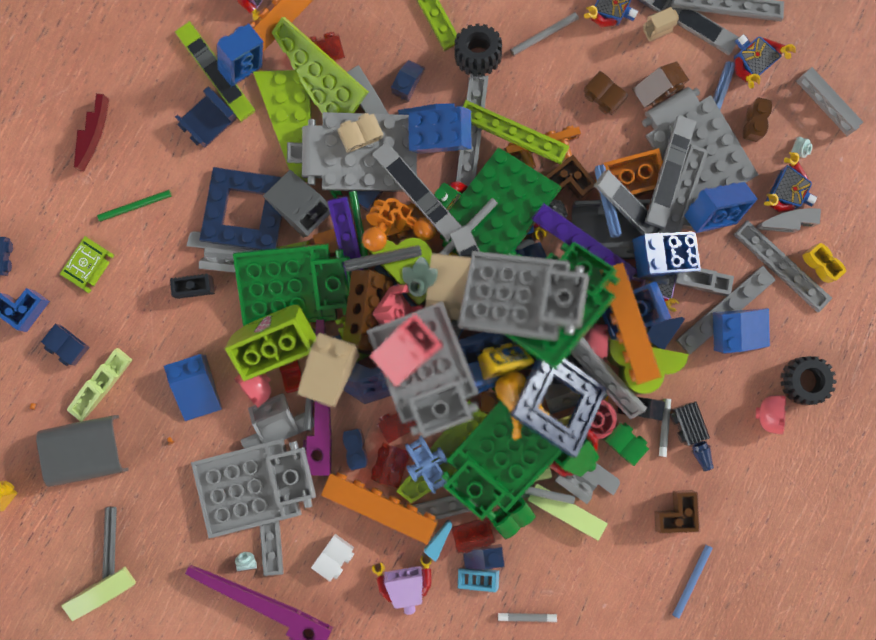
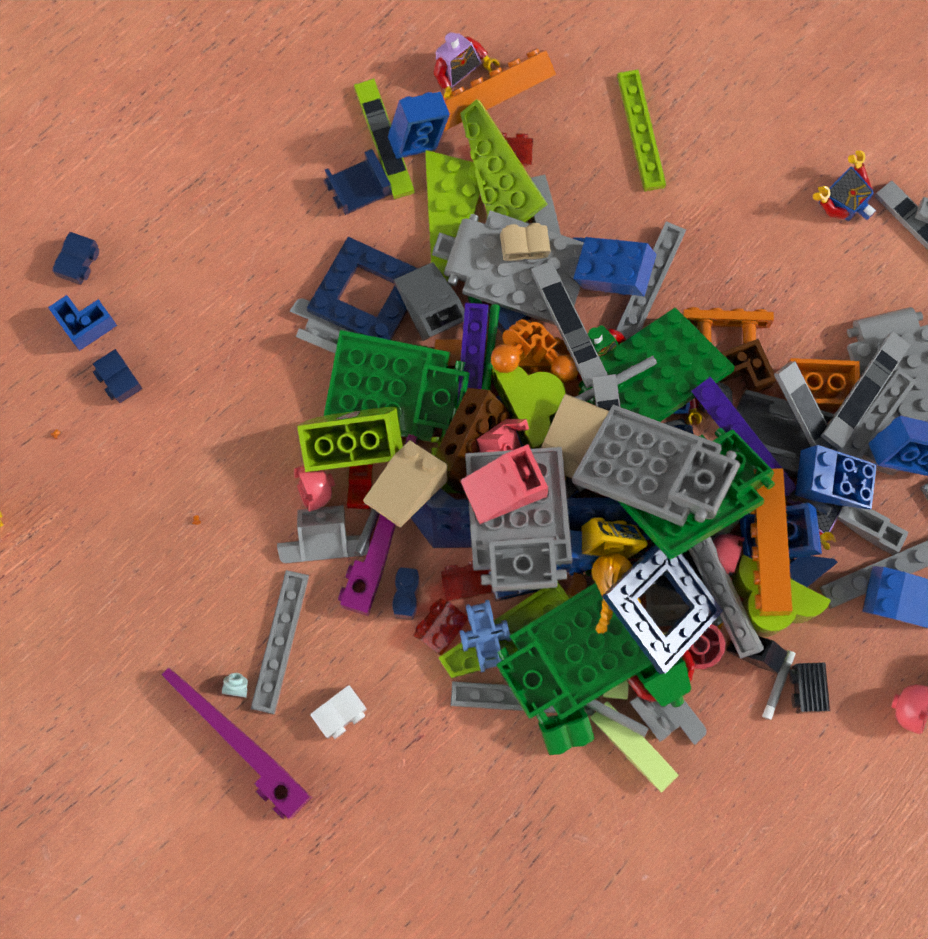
camera: 15 degrees right, 10 degrees down
(78, 451) = (91, 498): dark grey piece -> none
(86, 264) = (172, 298): lime piece -> none
(89, 138) = (223, 166): dark red slope -> none
(98, 594) = (53, 667): yellowish green slope -> none
(99, 385) = (139, 432): yellowish green slope -> none
(109, 541) = (85, 616): dark grey axle -> none
(134, 205) = (249, 251): green bar -> none
(192, 286) = (281, 354): black brick -> none
(193, 386) = (244, 466): blue slope -> none
(253, 486) = (274, 599): light grey plate -> none
(380, 508) = (413, 670): orange brick -> none
(382, 258) = (507, 383): dark grey axle -> none
(404, 586) = (413, 772): lavender torso -> none
(407, 80) = (592, 209): dark blue slope -> none
(421, 275) = (544, 413): sand green plate -> none
(437, 542) = (465, 735): medium azure slope -> none
(473, 535) = (512, 737): clear red bracket -> none
(478, 37) = (683, 198): black tyre -> none
(478, 572) = (523, 800): medium azure slope -> none
(485, 558) = (517, 769): dark blue slope -> none
(517, 133) = (701, 299): lime tile -> none
(527, 617) = (547, 860): light grey bar -> none
(545, 33) = (761, 205): light grey bar -> none
(605, 93) = (814, 287): reddish brown brick -> none
(609, 208) = (783, 410): medium blue axle -> none
(626, 443) = (727, 687): green brick -> none
(660, 24) = (897, 229): tan brick -> none
(661, 82) = (880, 292): brick -> none
(683, 517) = (773, 795): reddish brown brick -> none
(692, 581) = (761, 881): medium blue bar -> none
(703, 454) = (816, 731): dark blue cone -> none

